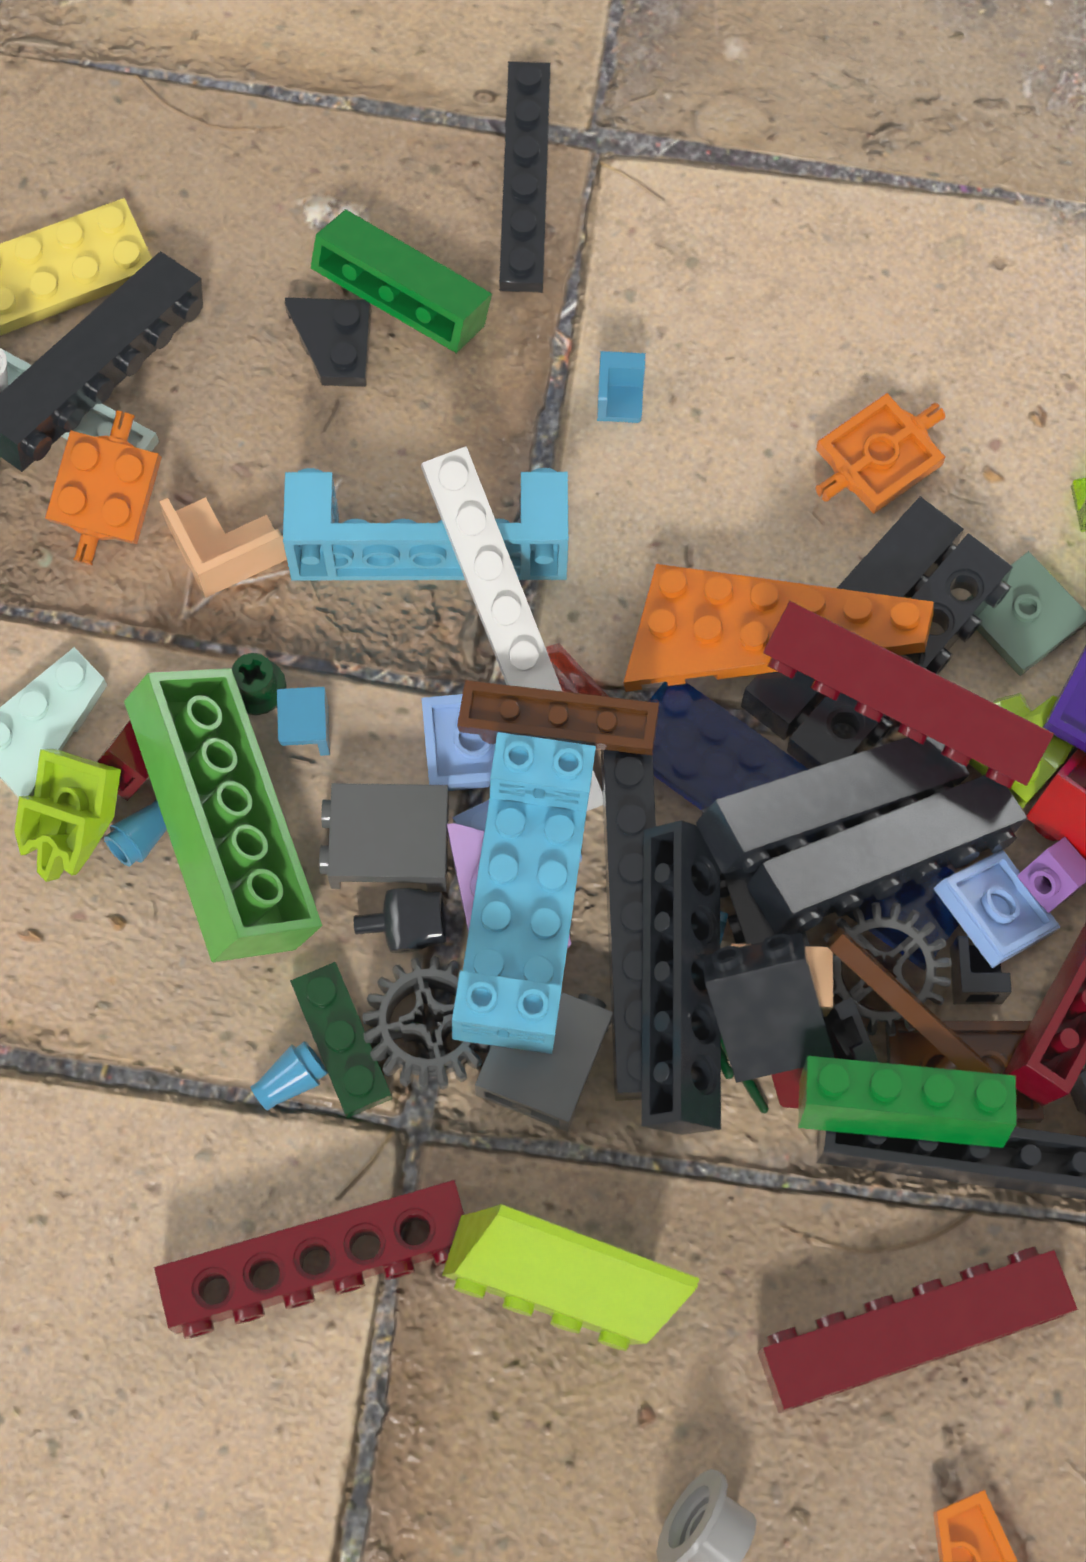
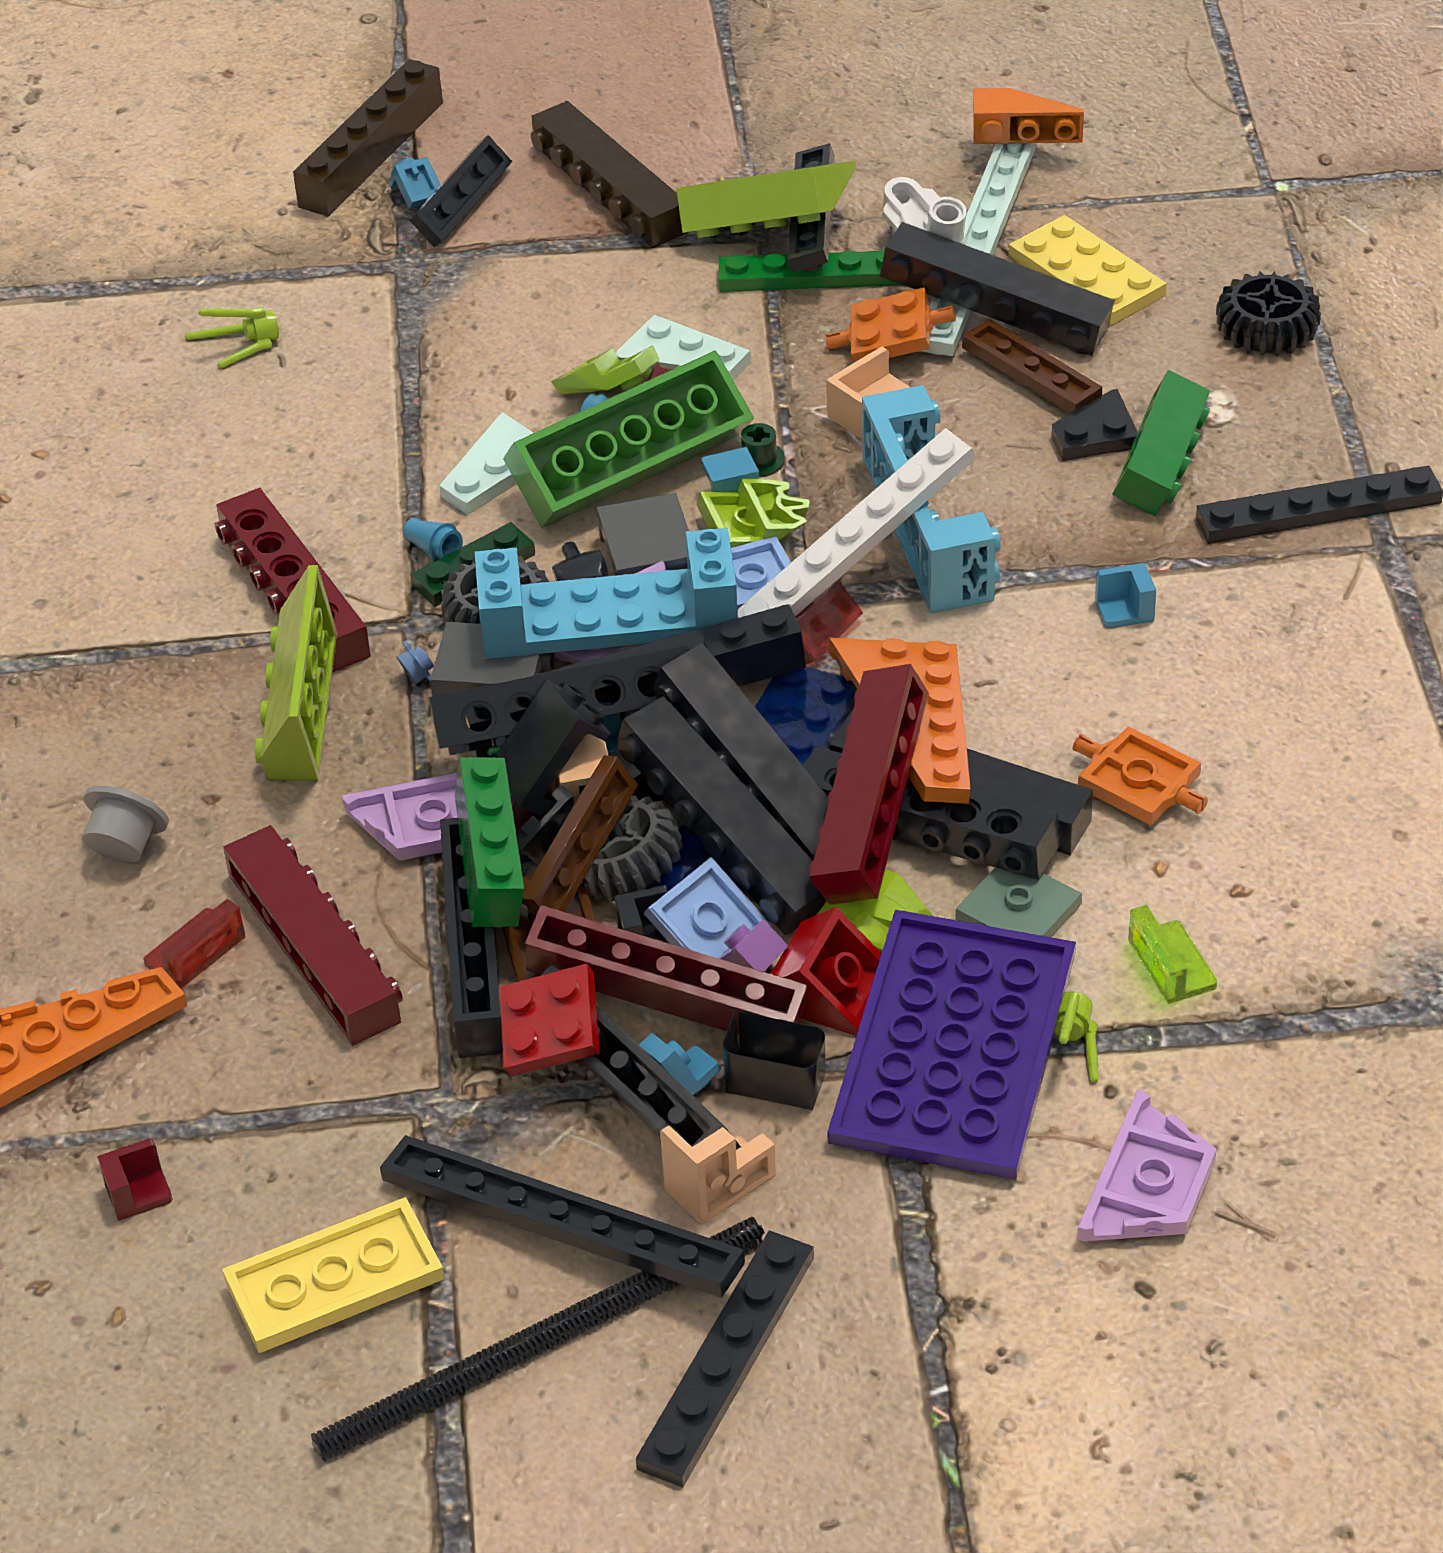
camera: 80 degrees right, 25 degrees down
(167, 976) = (482, 471): none -> light aqua wing
(216, 368) = (1030, 366): none -> reddish brown plate
(224, 134) = (1268, 313): none -> black gear
(374, 715) = (754, 511): none -> lime plate
(508, 1136) = (415, 663): none -> medium blue plate
(559, 716) = (762, 574): reddish brown piece -> none
(756, 1168) = (406, 814): none -> lavender wing
(890, 1469) = (198, 943): none -> clear red panel

